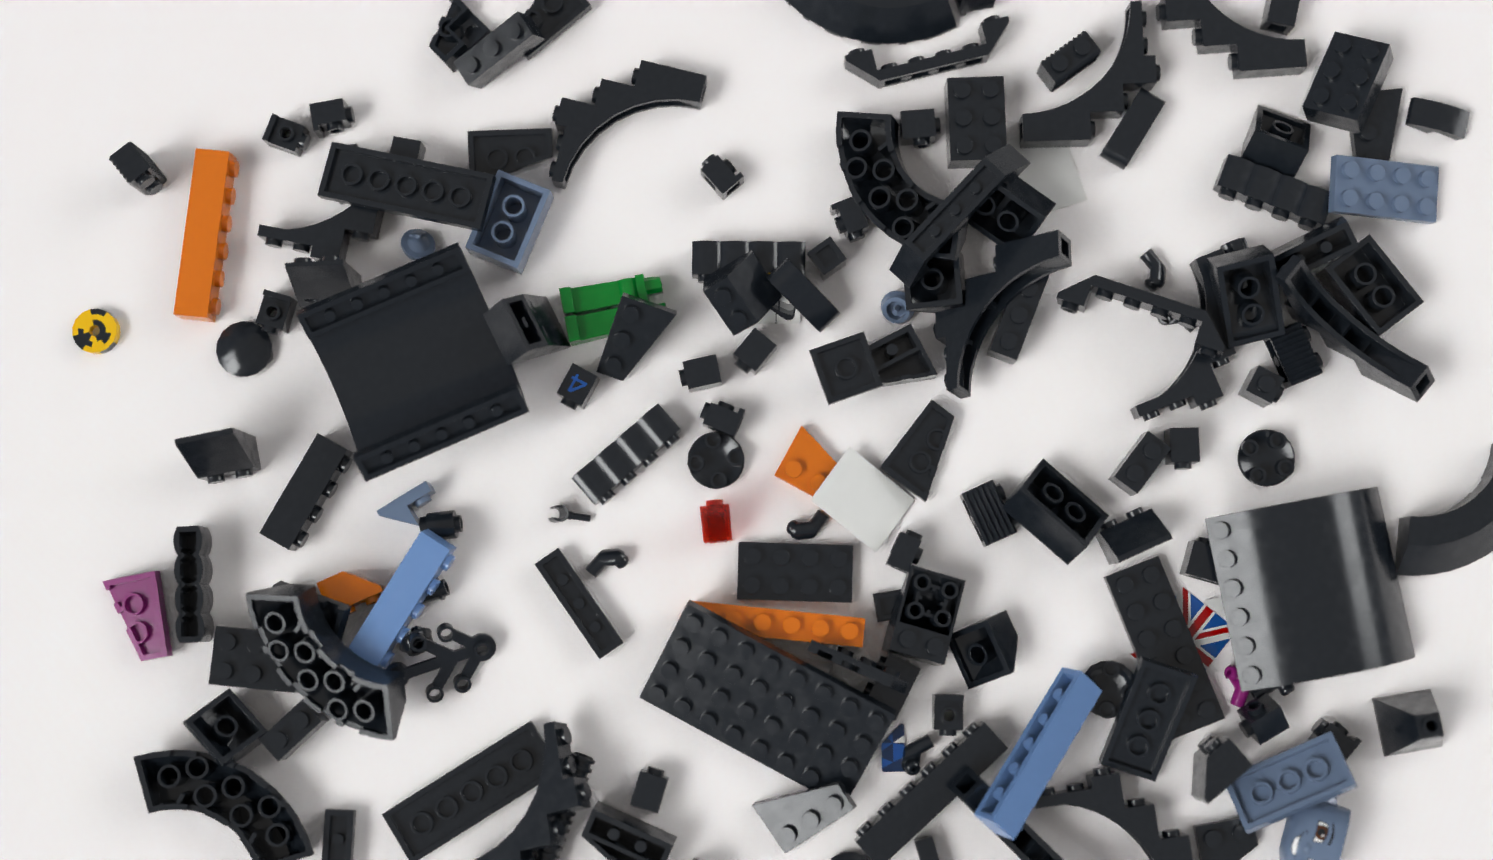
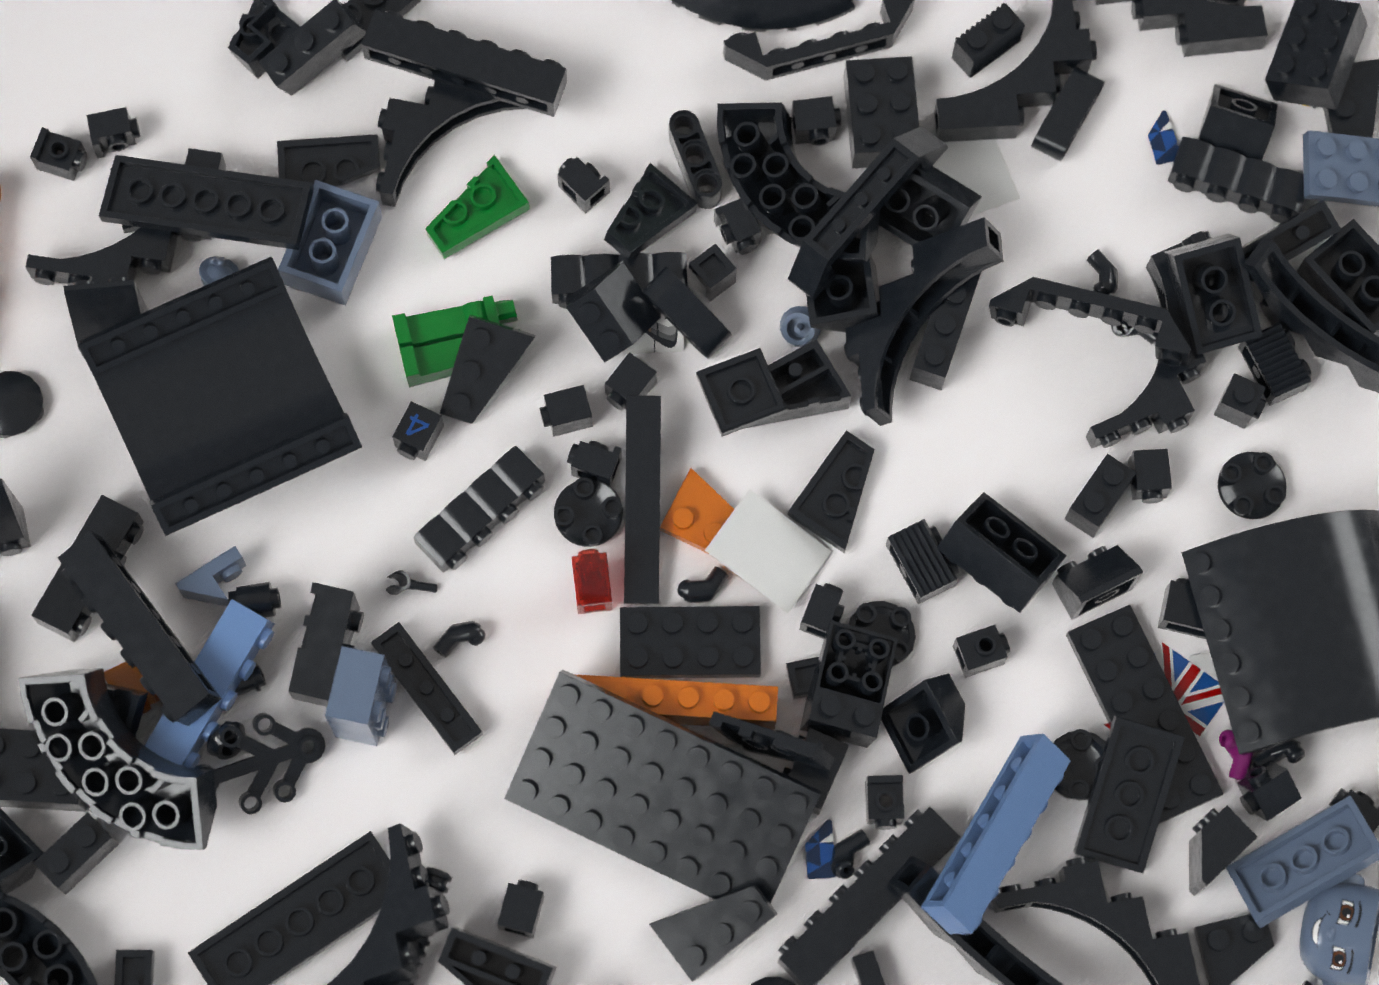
camera: 10 degrees left, 10 degrees down
(285, 311) = (55, 367): black brick -> none
(344, 553) = (138, 629): none -> black brick
(498, 568) = (328, 628): none -> black wedge
(524, 615) = (360, 696): none -> sand blue brick
(525, 328) = (352, 359): black slope -> none
(625, 69) = (464, 62): none -> black brick
(637, 194) = (482, 208): none -> green wing
(760, 453) = (642, 499): none -> black tile
(775, 206) = (649, 213): none -> black wing
(818, 145) = (690, 145): none -> black beam
(957, 563) = (890, 621): none -> black dish
(1033, 590) = (981, 650): none -> black brick
(1211, 153) = (1163, 140): none -> sticker

